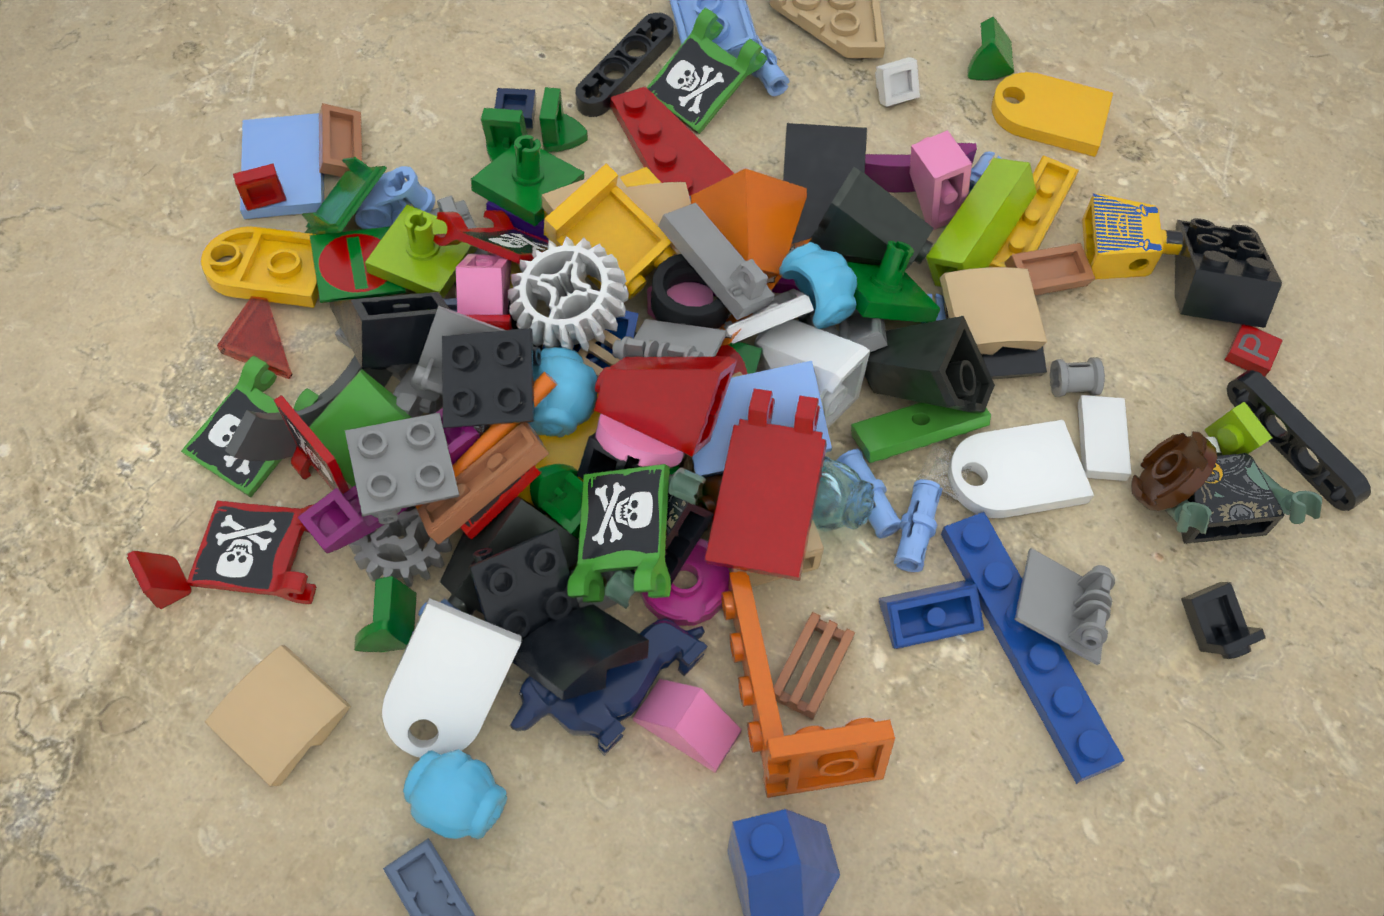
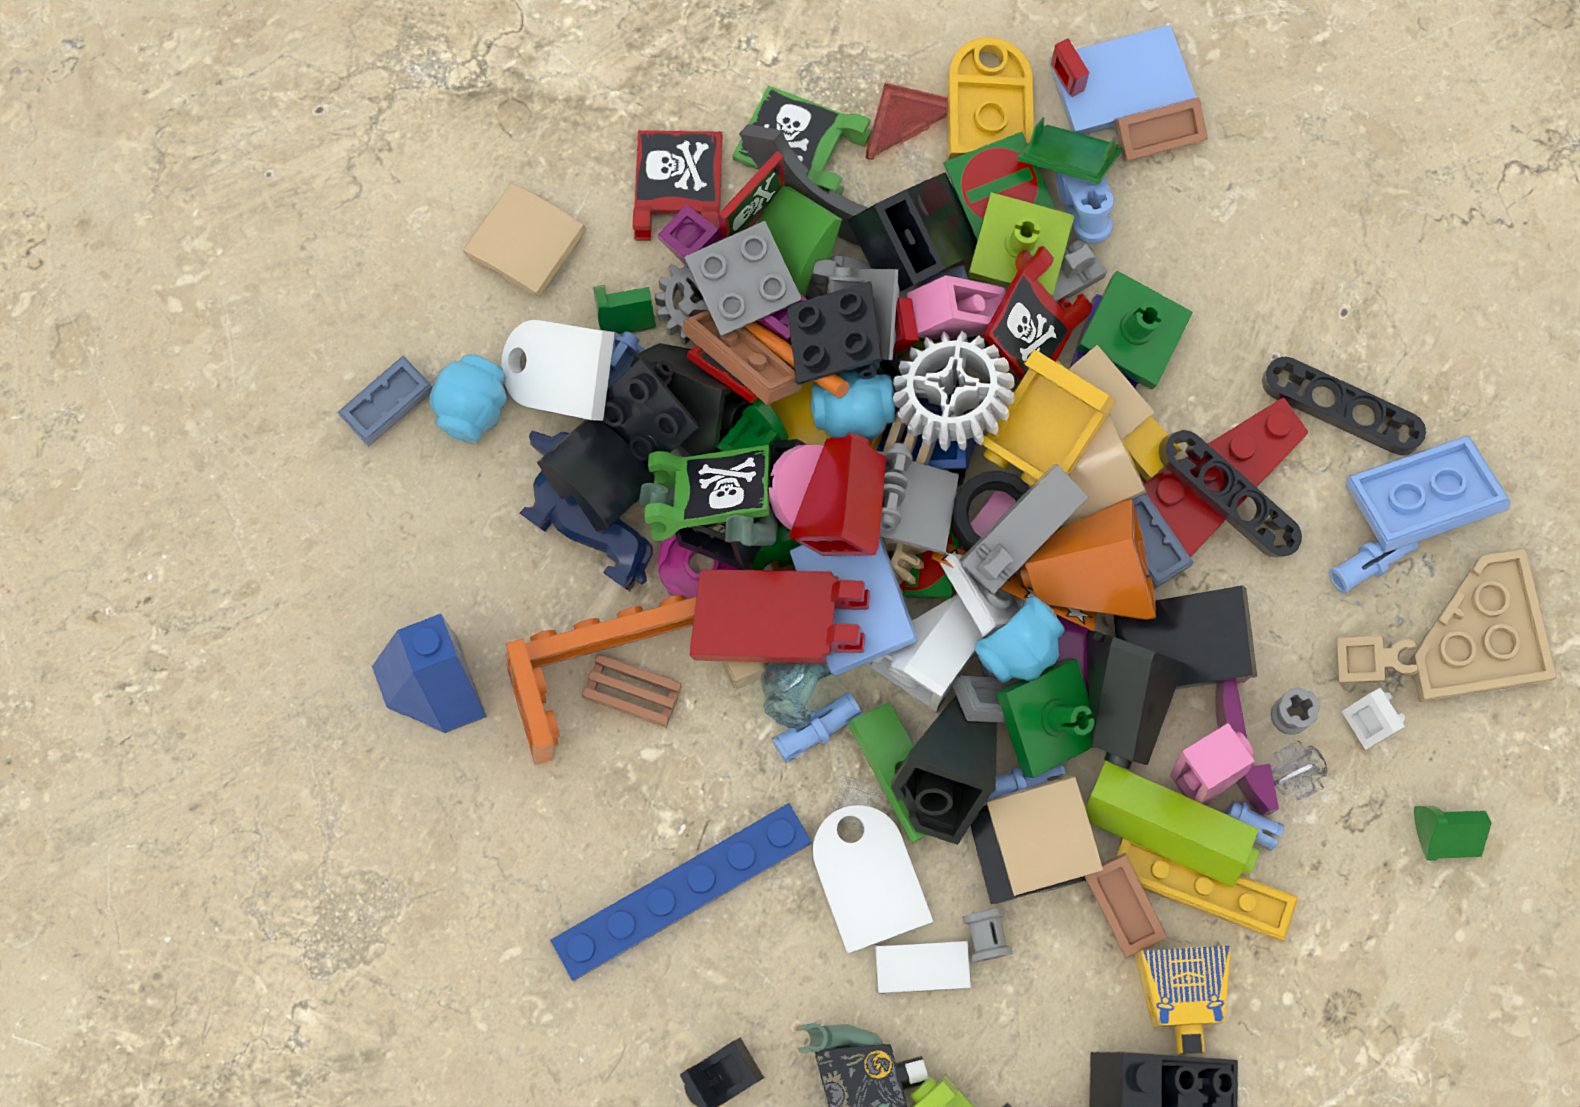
camera: 85 degrees right, 15 degrees up
(159, 577) = (636, 106): red slope -> none
(501, 129) = (1196, 294): green tile -> none
(518, 100) = (1245, 297): dark blue plate -> none
(558, 129) = (1228, 348): green tile -> none
(658, 155) = (1226, 499): none -> black beam
(689, 722) = (560, 584): bright pink slope -> none
(703, 74) = (1331, 490): flag -> none
(847, 75) = (1366, 659): none -> tan plate
(888, 124) = (1295, 698): none -> light grey bush
(918, 525) = (786, 777): light blue pin -> none
(932, 613) = (700, 797): blue slope -> none
(937, 124) = (1299, 770): none -> clear gear
(1052, 111) = (1375, 915): yellow tile -> none
(1066, 605) = (715, 919): light grey hinge -> none
(1174, 471) = (873, 1029): reddish brown tile -> none

